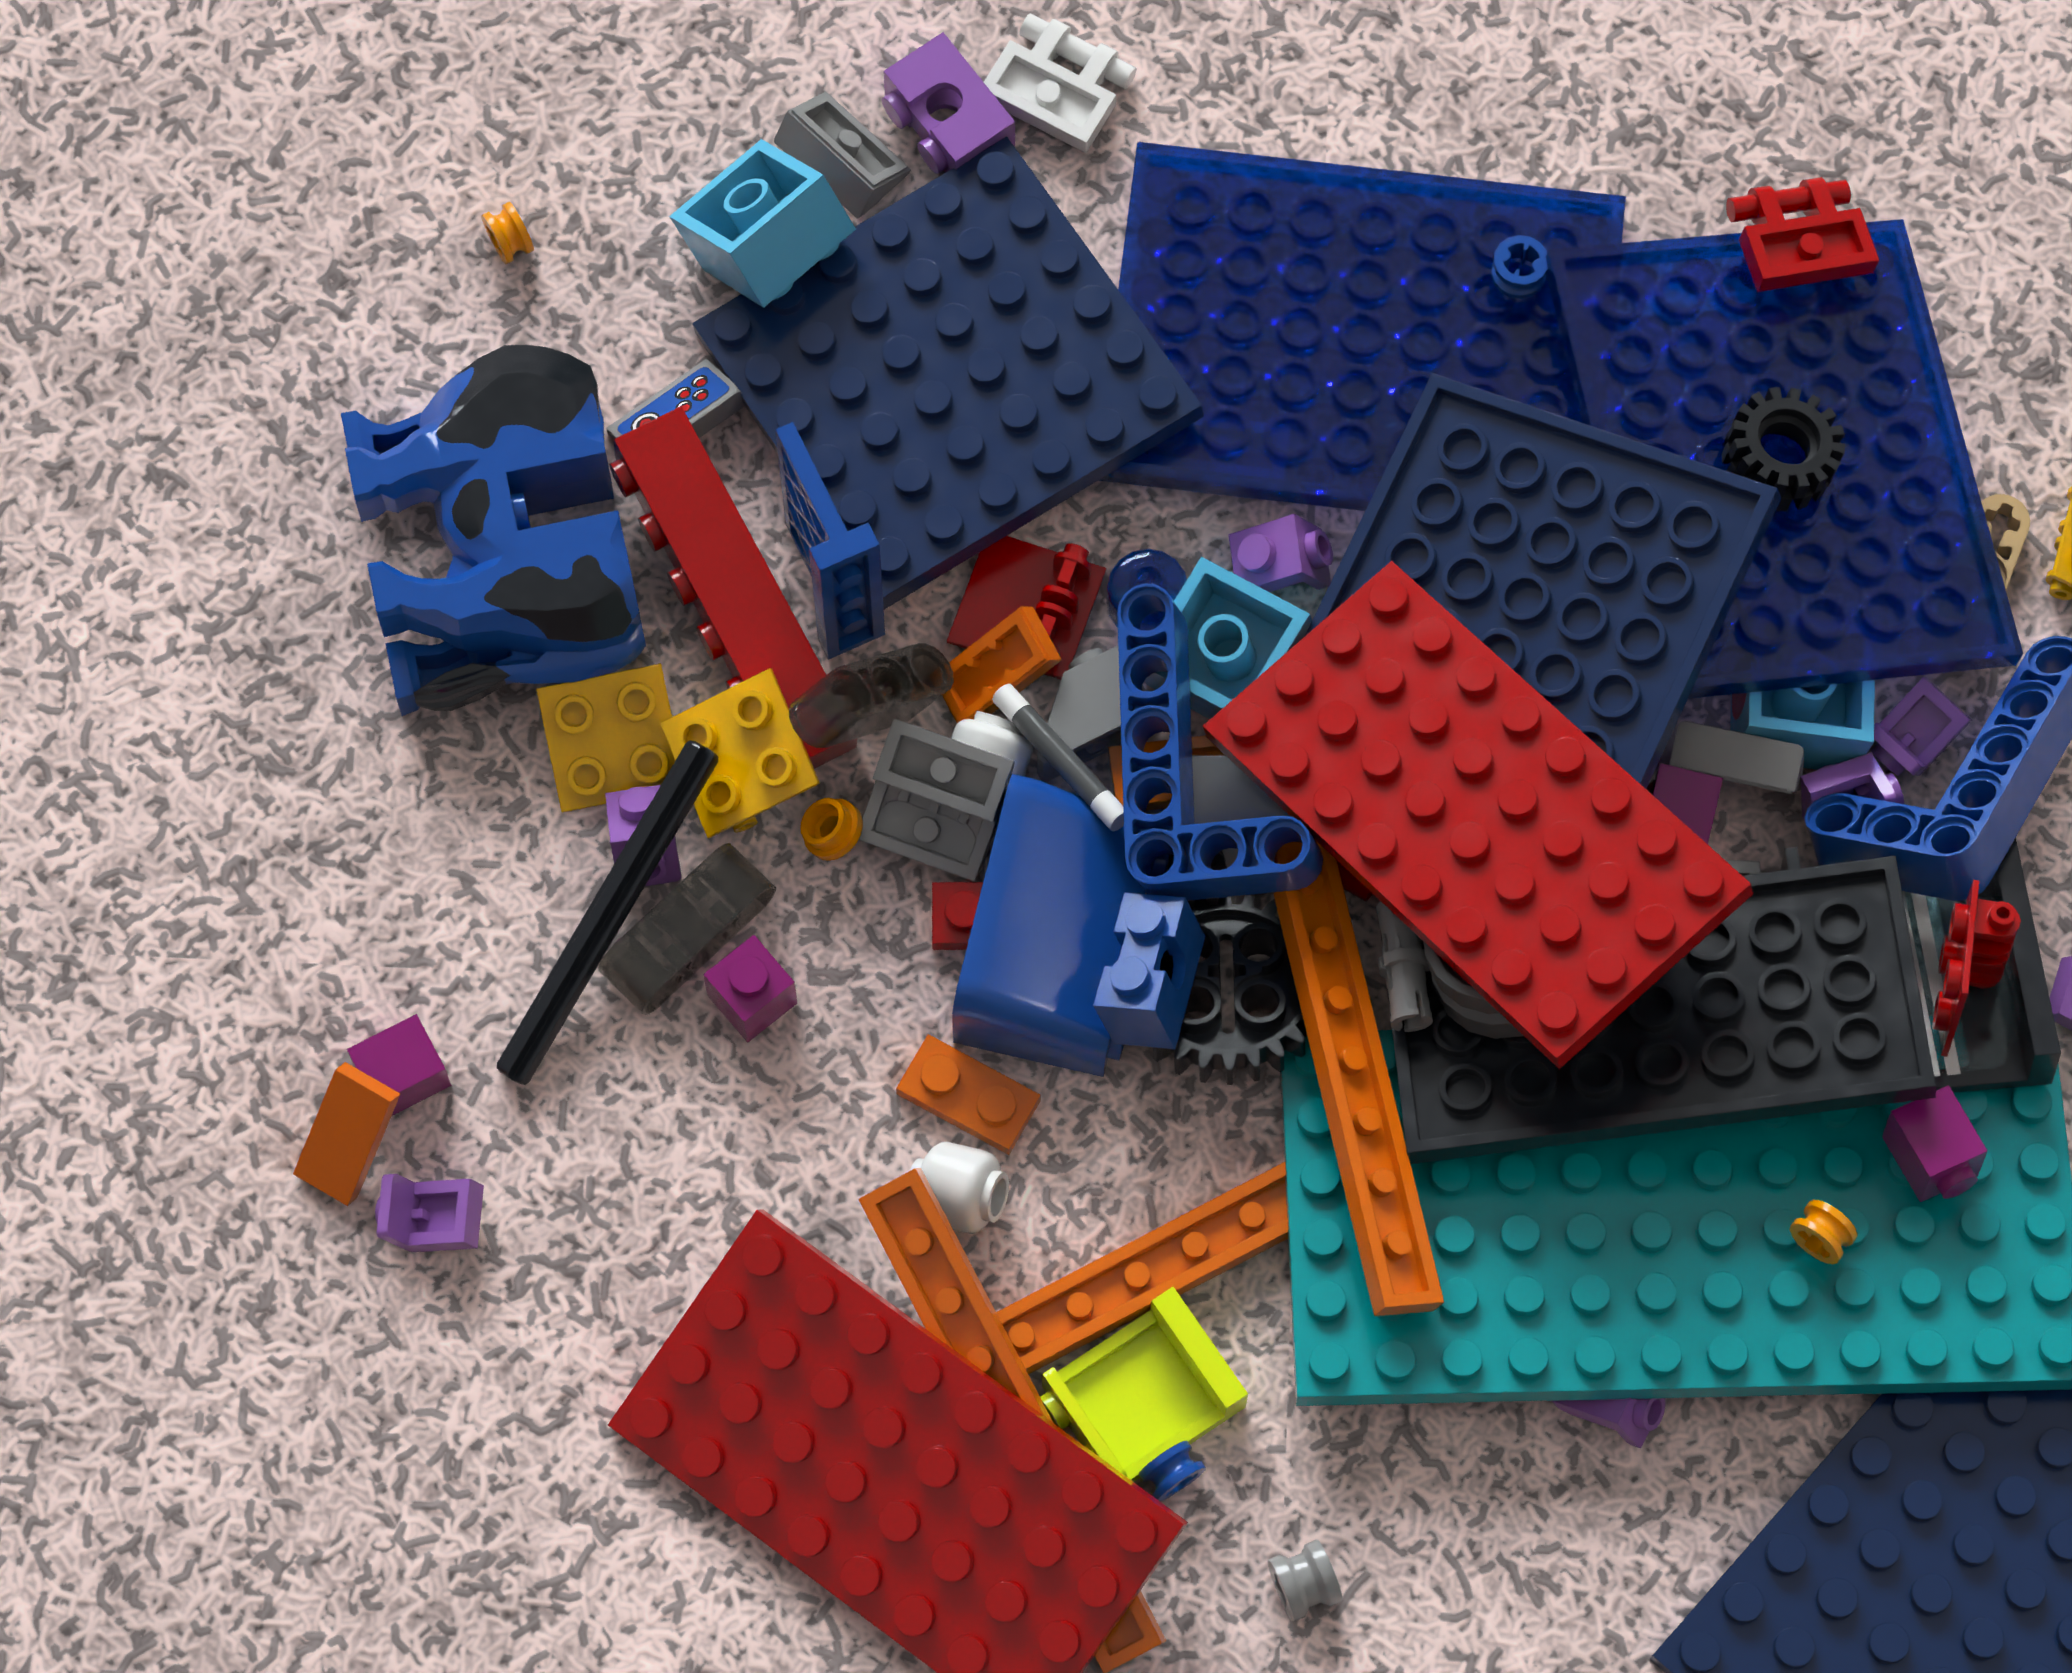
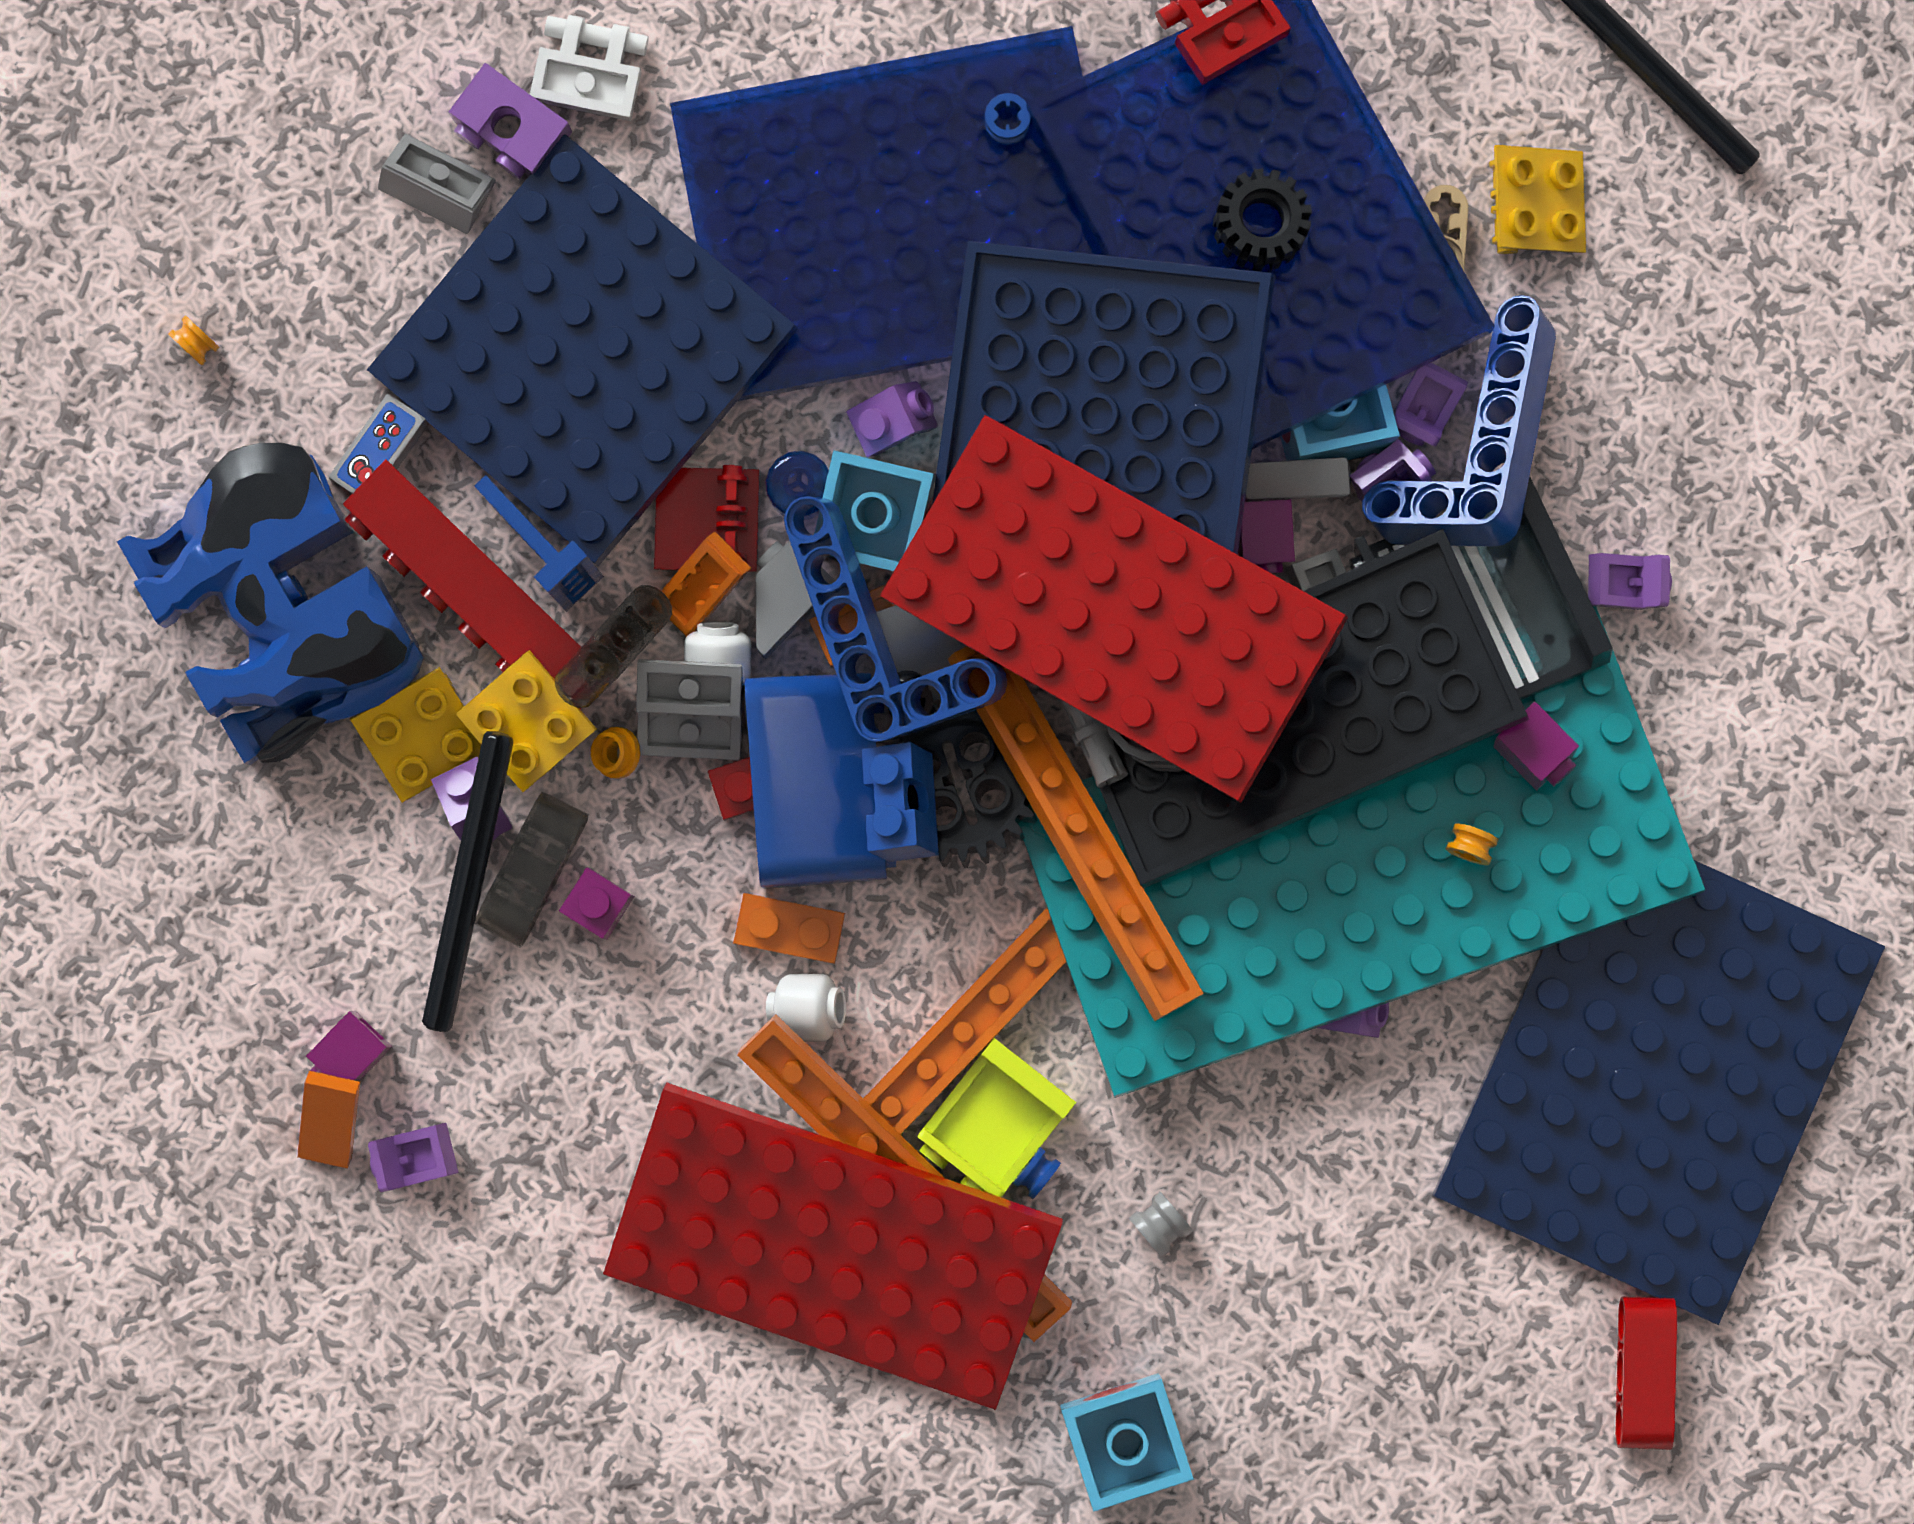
camera: 20 degrees left, 15 degrees up
(763, 223) = (396, 275): medium azure brick -> none
(1060, 756) = (775, 649): dark grey bar -> none
(1972, 956) = (1523, 581): red hinge -> none

